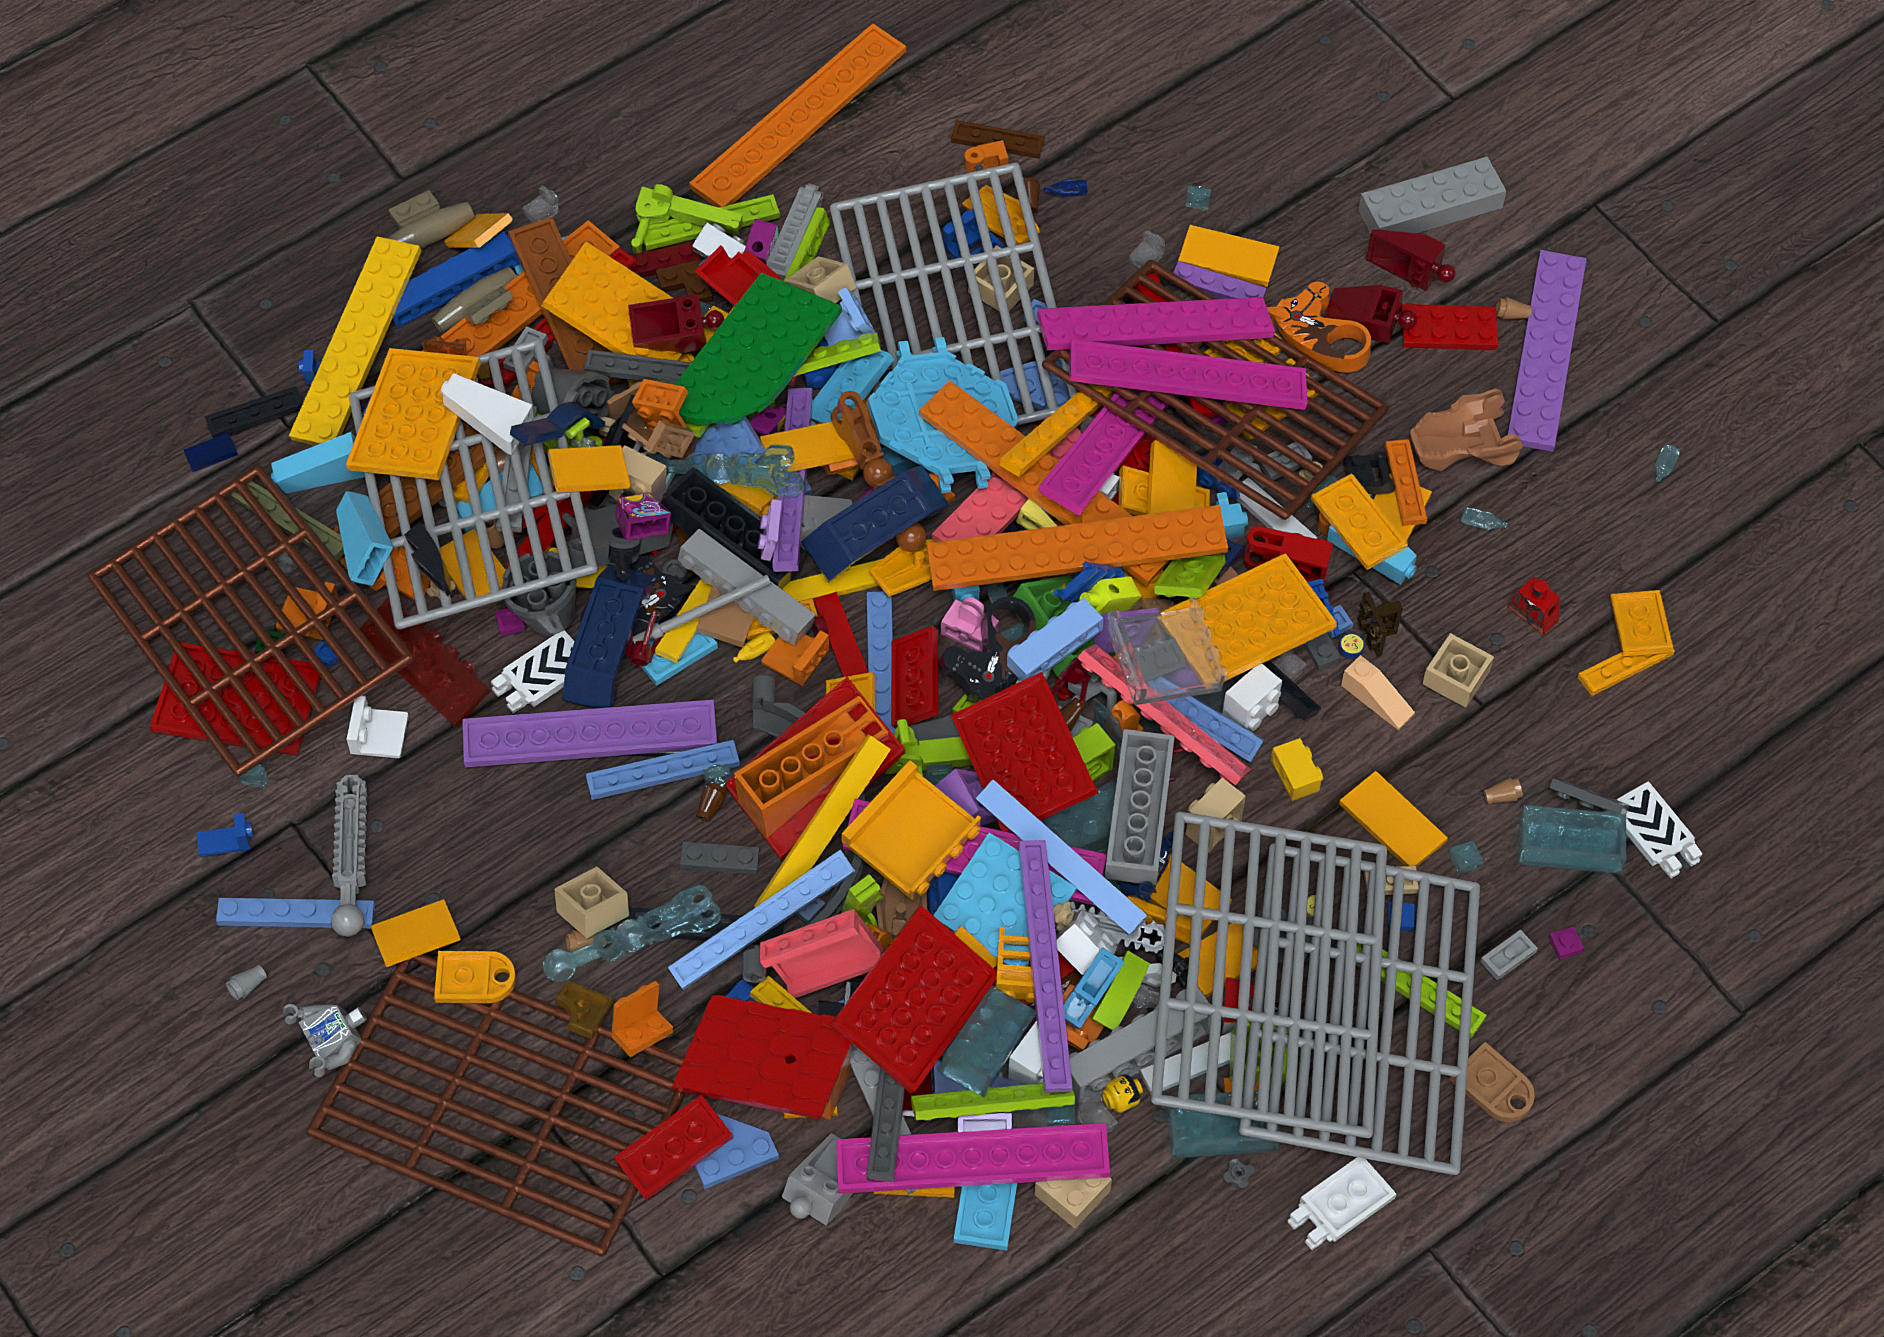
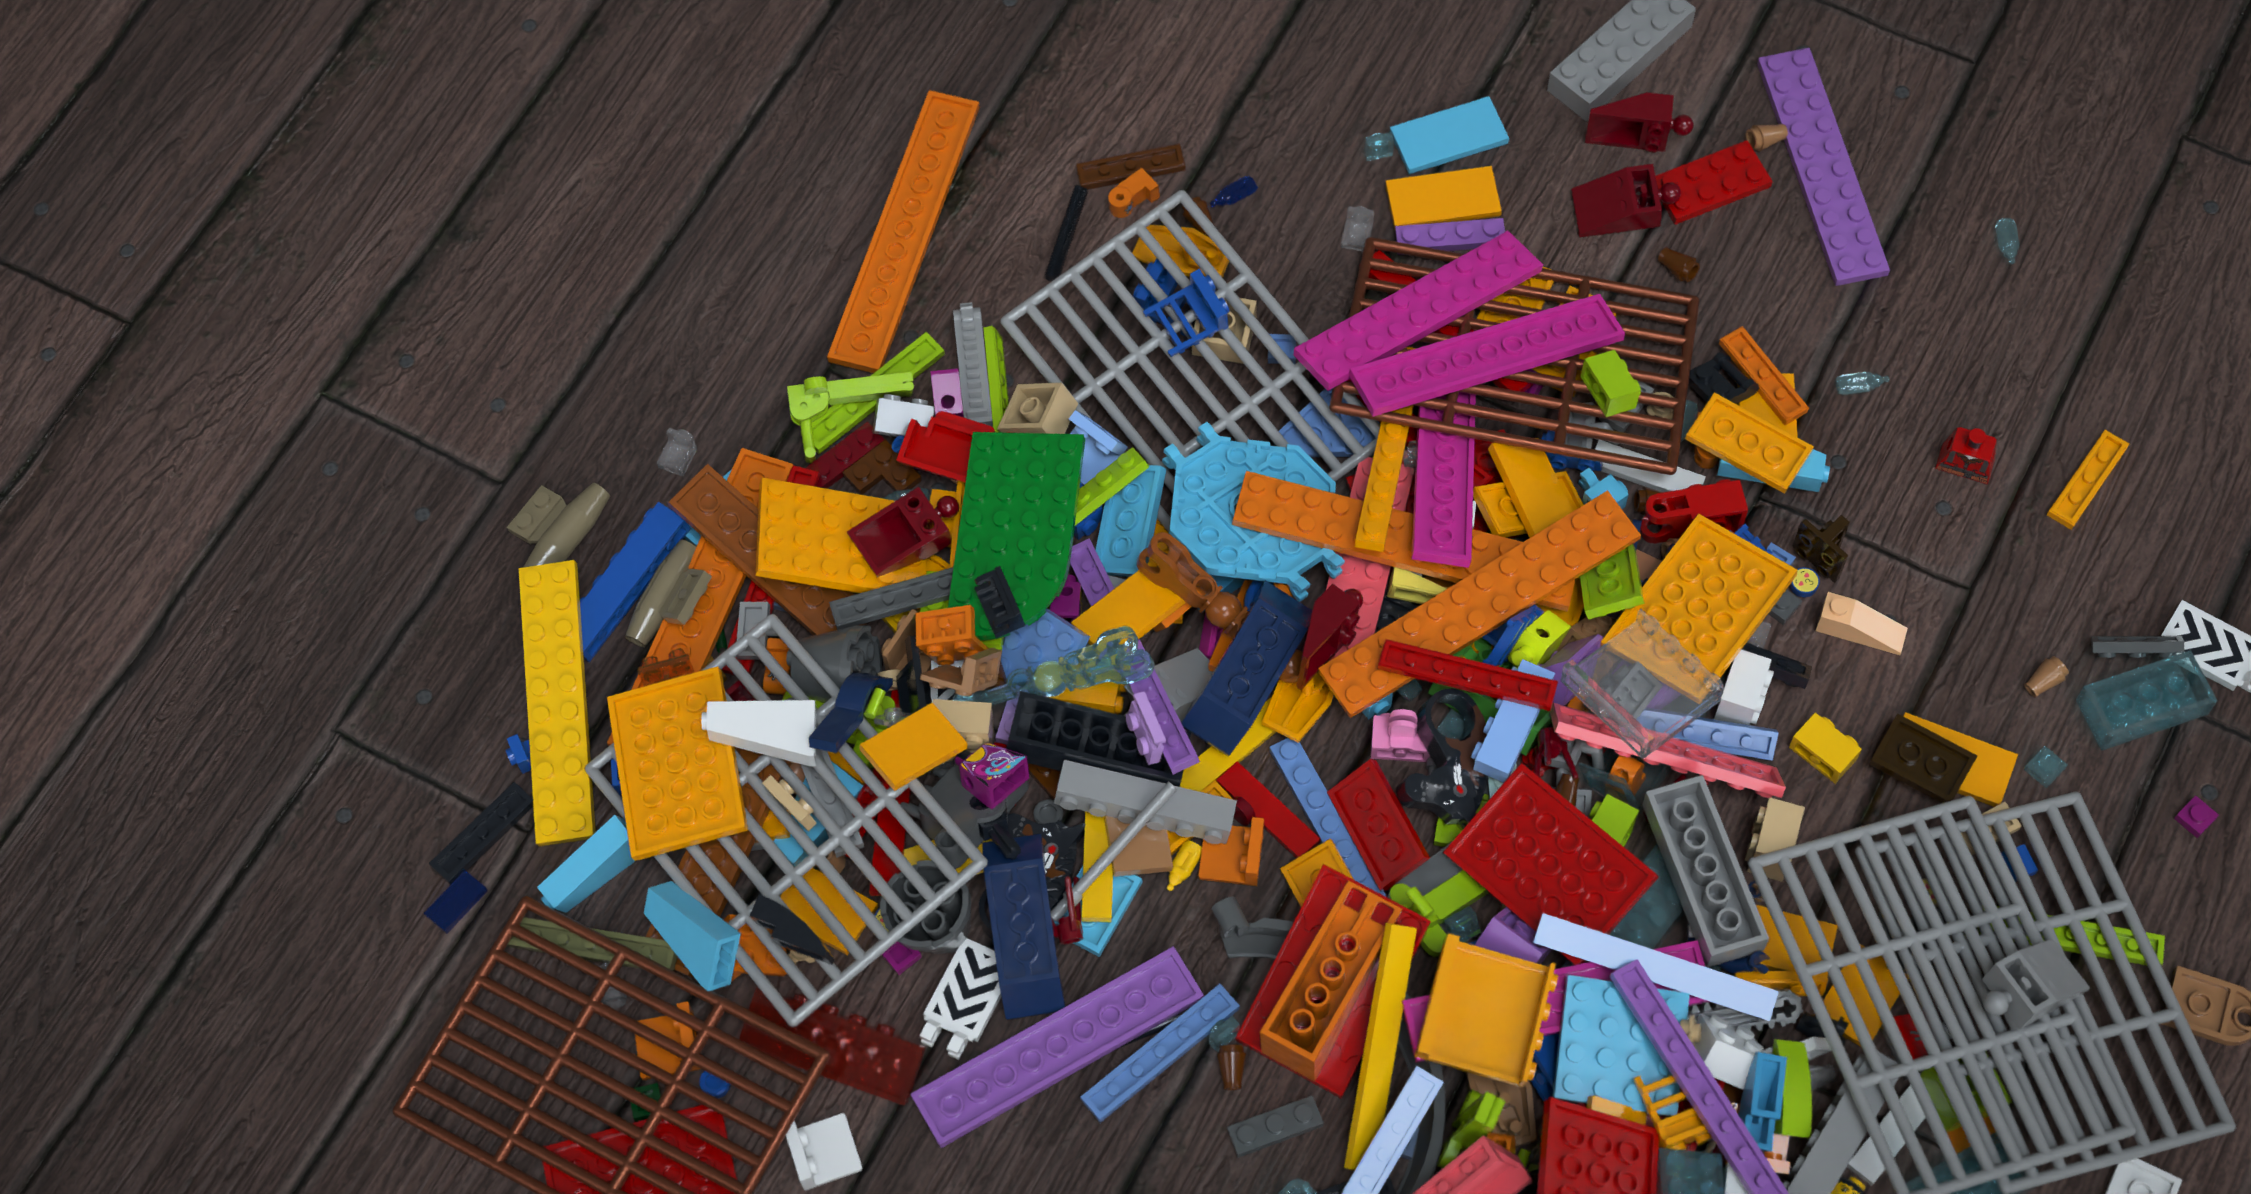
camera: 20 degrees left, 5 degrees up
(478, 230) = (627, 511): light orange tile -> none
(480, 477) = (799, 810): none -> tan plate
(709, 395) = (998, 602): none -> black hinge
(924, 163) = (1065, 233): none -> black axle
(945, 517) = (1329, 629): none -> dark red slope
(987, 252) = (1205, 305): none -> blue plate
(1035, 591) = (1468, 675): none -> red tile
(1260, 212) = (1449, 135): none -> medium azure tile
(1272, 433) = (1610, 383): none -> lime brick
(1305, 329) = (1576, 250): orange animal -> none
(1348, 991) = (2032, 983): none -> light grey slope
(1366, 807) = (1923, 759): none -> dark brown plate
(1387, 377) = (1679, 264): none -> reddish brown cone
(1458, 670) = (1931, 563): tan brick -> none
(1465, 432) = (1796, 296): nougat animal -> none
(1508, 955) = (2149, 857): light grey plate -> none
(1641, 623) = (2081, 428): light orange tile -> none

